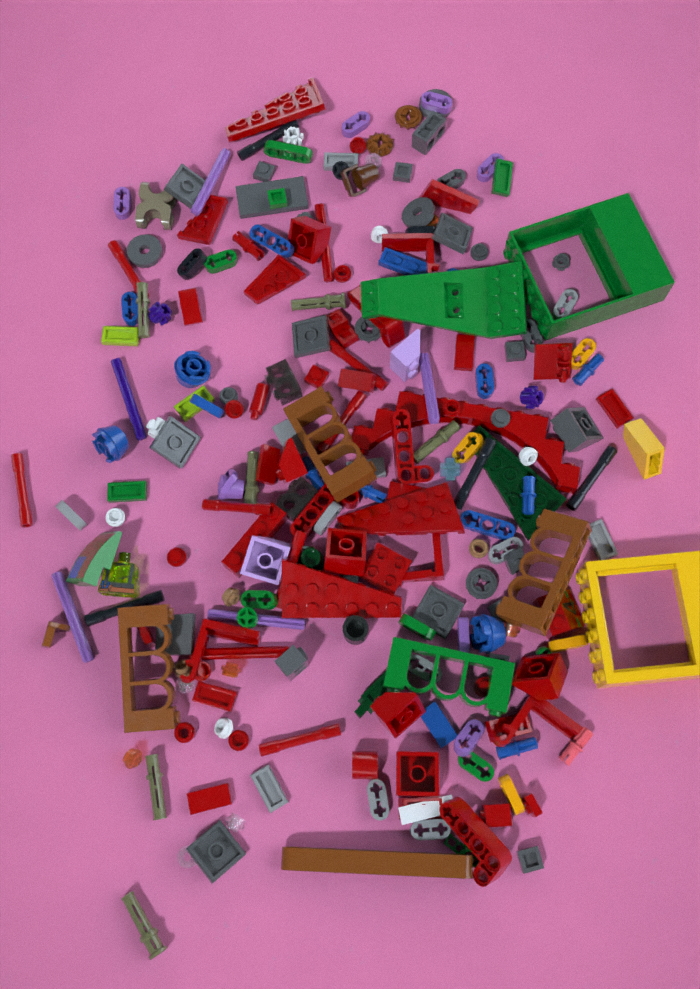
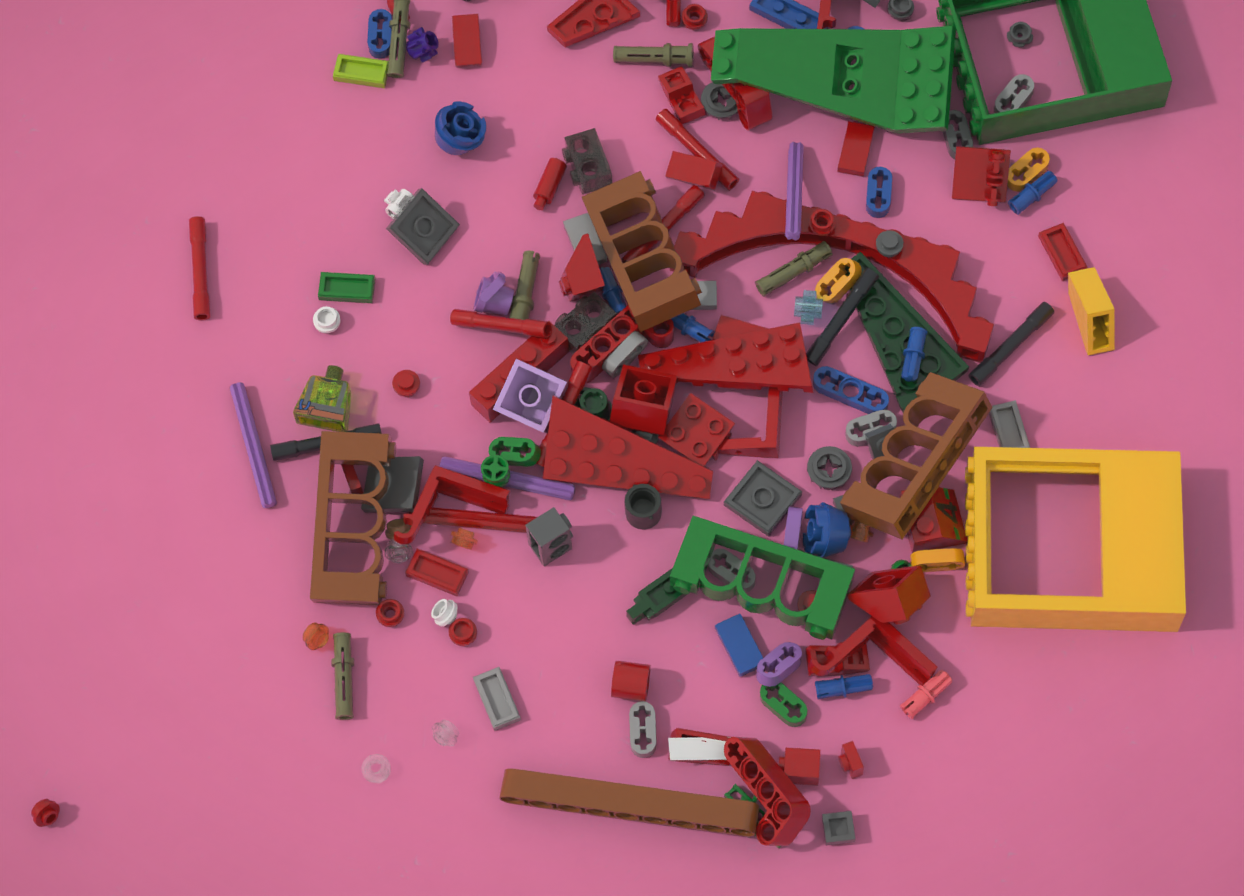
camera: 10 degrees right, 5 degrees down
(50, 632) = (224, 454): dark orange tile -> none
(71, 515) = (265, 309): light grey beam -> none
(94, 558) = (293, 370): slope -> none
(110, 442) = (332, 216): blue cone -> none
(128, 399) = (363, 160): dark purple axle -> none
(130, 900) = (312, 856): olive pin -> none
(187, 409) = (456, 177): lime tile -> none
(203, 671) = (425, 537): red plate -> none
(207, 406) = (474, 181): blue beam -> none
(209, 798) = (413, 701): red tile -> none
(215, 851) = (414, 765): dark grey tile -> none
(227, 395) = (506, 172): dark grey plate -> none
(231, 596) = (476, 443): medium nougat plate -> none
(234, 409) = (512, 191): red plate -> none
(267, 464) = (549, 272): red tile -> none
(310, 336) = (635, 101): dark grey tile -> none
(316, 376) = (636, 159): red plate -> none
(320, 734) = (513, 644): red piece -> none
(397, 711) = (686, 614): red slope -> none
(406, 356) = (768, 144): lavender slope -> none
(407, 446) = (750, 268): red beam -> none
(417, 627) = (729, 513): green beam -> none
(417, 774) = (700, 699): red brick -> none
(431, 835) = (708, 768): light grey beam -> none
(481, 543) = (833, 413): medium nougat plate -> none
(511, 794) = (826, 743): light orange beam -> none
(514, 351) = (930, 155): dark grey plate -> none
(528, 456) = (918, 297): white plate -> none
(531, 397) = (942, 221): dark purple gear -> none
(576, 429) = (1000, 272): dark grey slope -> none

